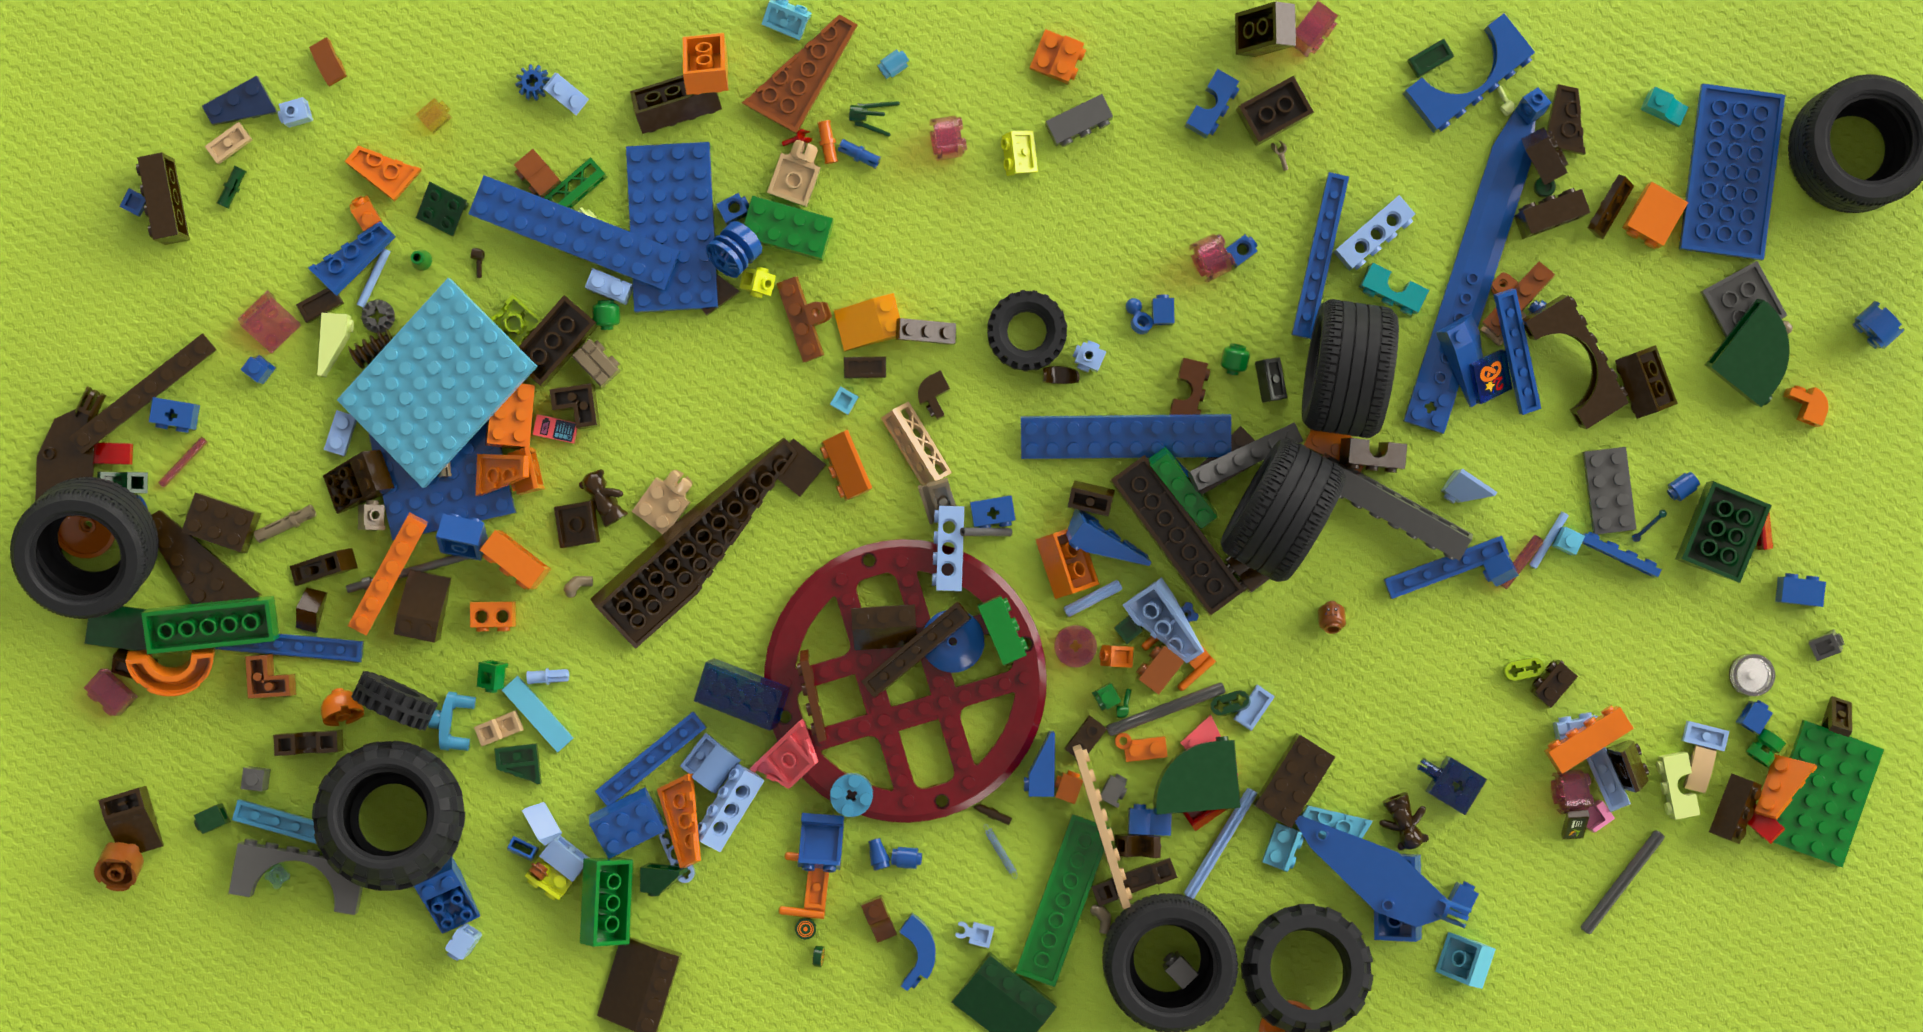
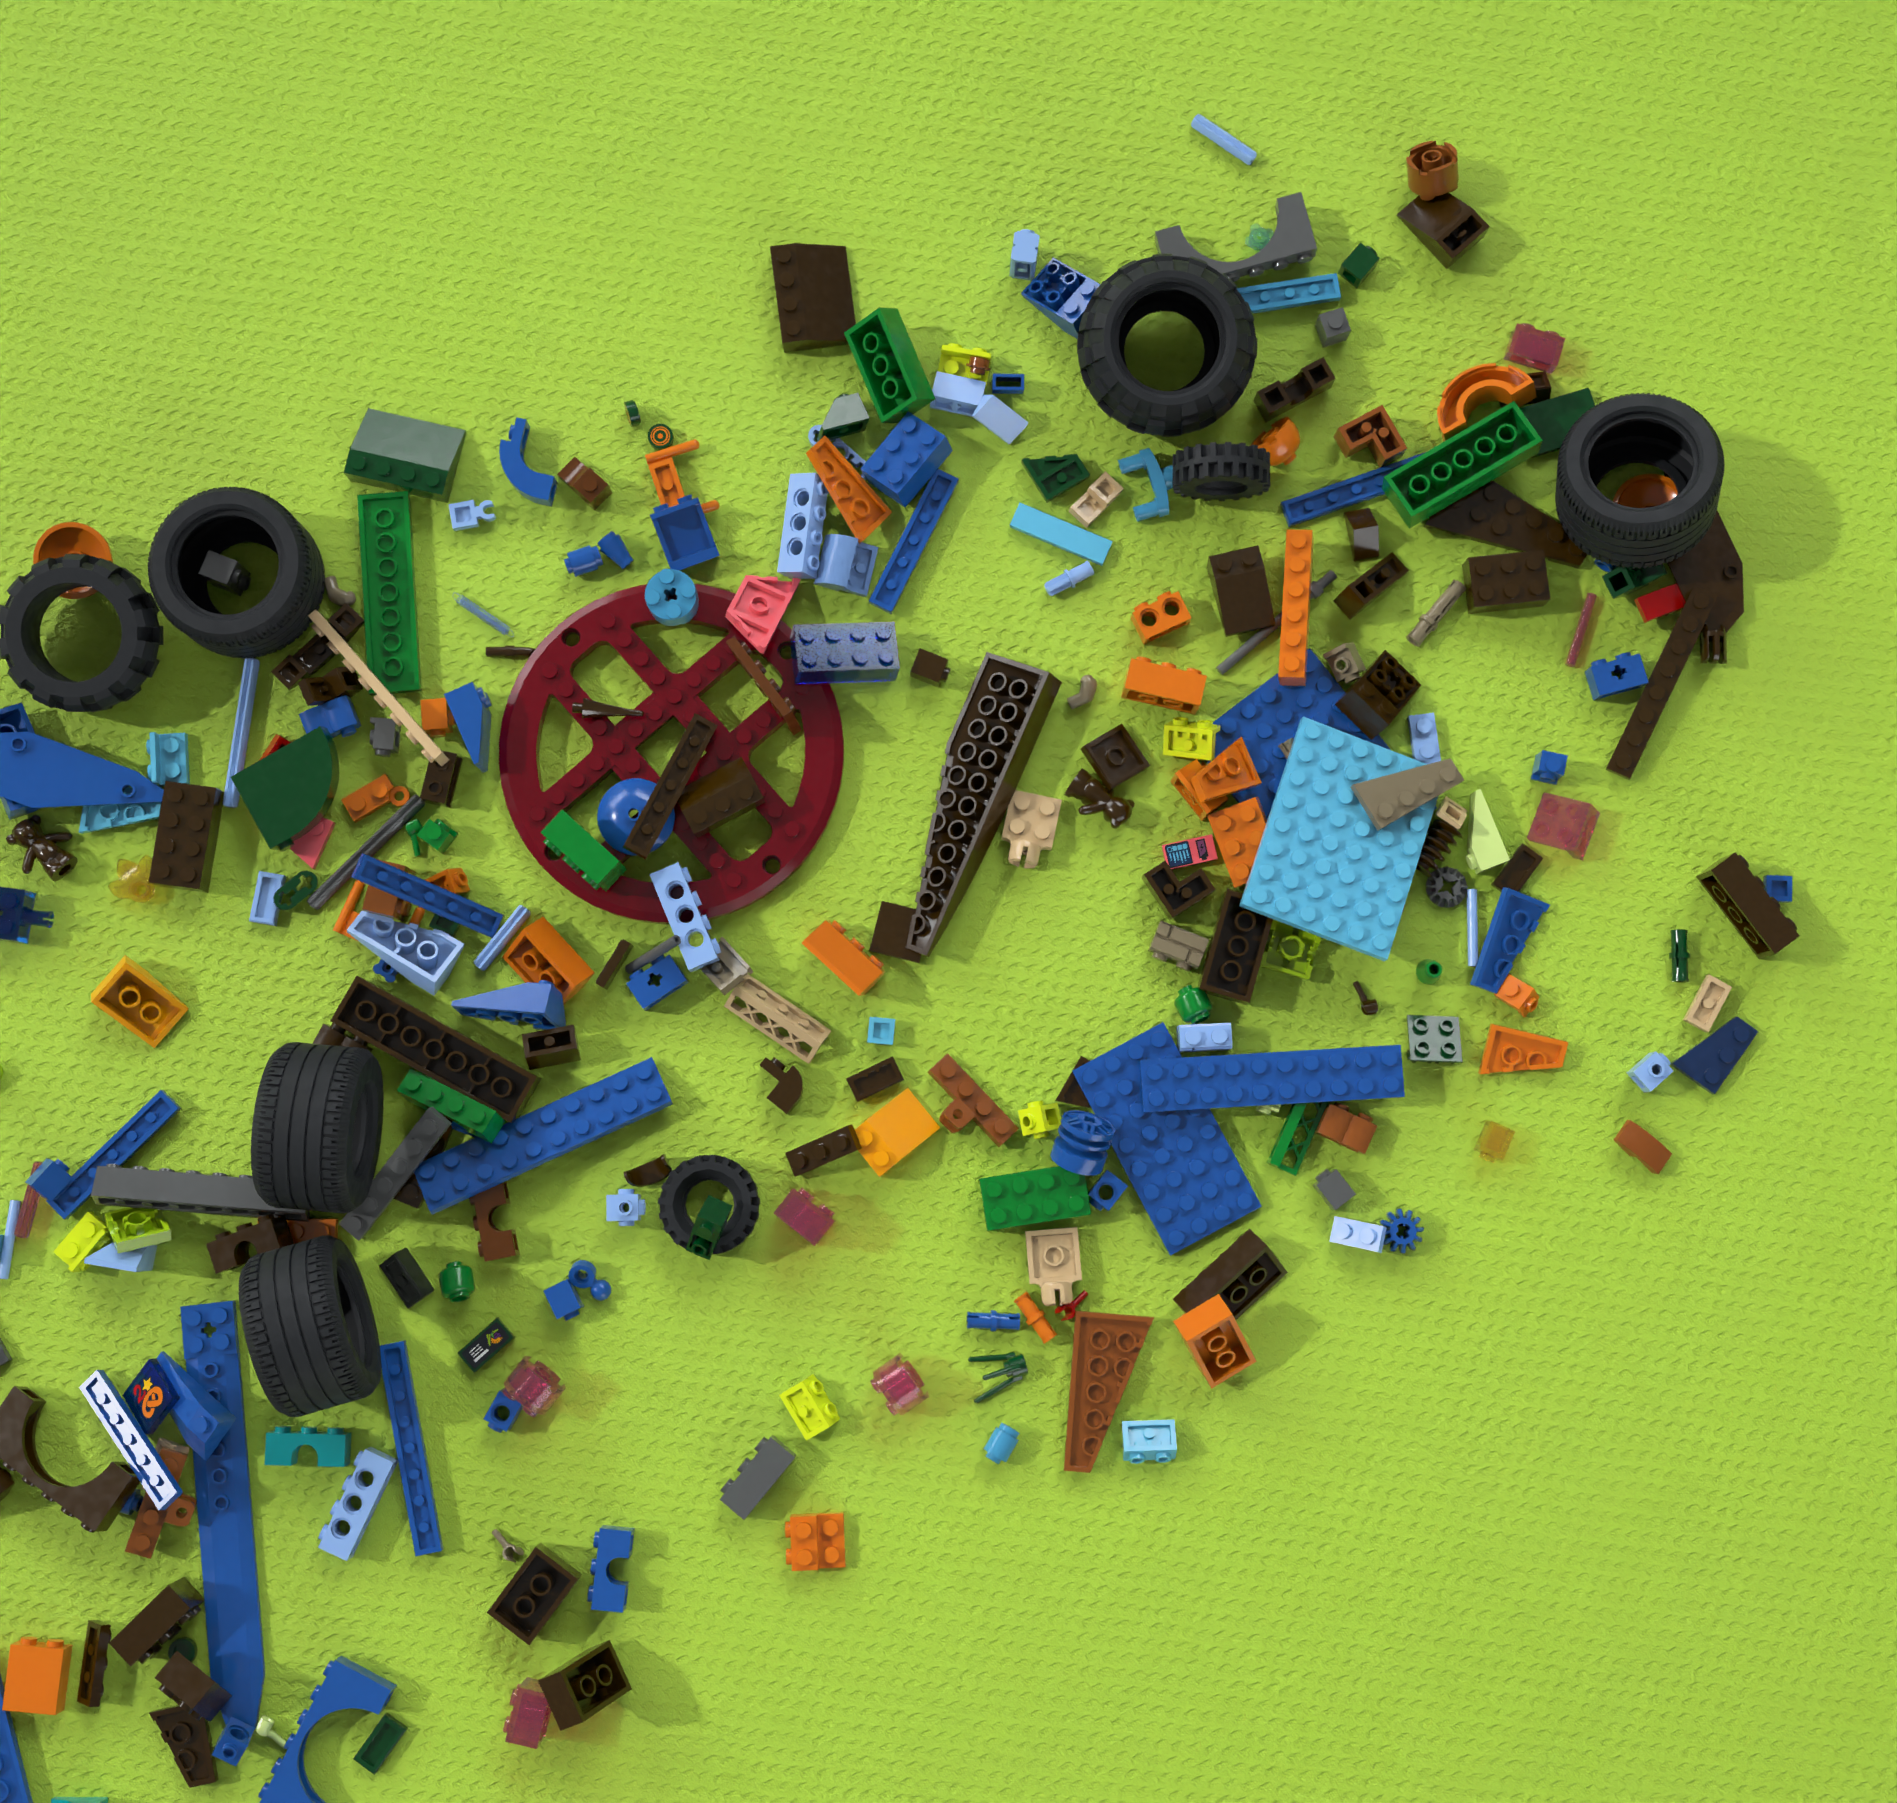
camera: 155 degrees right, 5 degrees down
(266, 967) = (1223, 139): none -> light blue axle
(347, 367) = (1451, 812): none -> tan slope
(377, 396) = (1400, 793): none -> dark tan wing
(461, 536) = (1234, 684): blue brick -> none
(491, 675) = (1130, 551): green brick -> none
(514, 512) = (1190, 738): none -> neon yellow bracket
(567, 134) = (1333, 1188): none -> dark grey brick
(683, 655) = (930, 668): none -> dark brown brick
(950, 737) = (594, 709): none -> dark brown piece
(960, 289) = (805, 1216): none -> clear pink brick
(1018, 539) = (614, 964): none -> dark brown tile
(1033, 311) = (708, 1227): none -> dark green slope
(1066, 654) = (483, 869): clear pink brick -> none
(1132, 650) = (427, 895): none -> blue tile
(1234, 304) = (486, 1345): none -> tile
(1331, 617) = (220, 1037): dark orange head -> none
(1347, 769) = (131, 878): none -> clear yellow plate
(1381, 672) = (138, 1001): none -> light orange slope
(1450, 502) = (137, 1228): none -> lime brick
(1495, 513) = (83, 1240): none -> neon yellow bracket

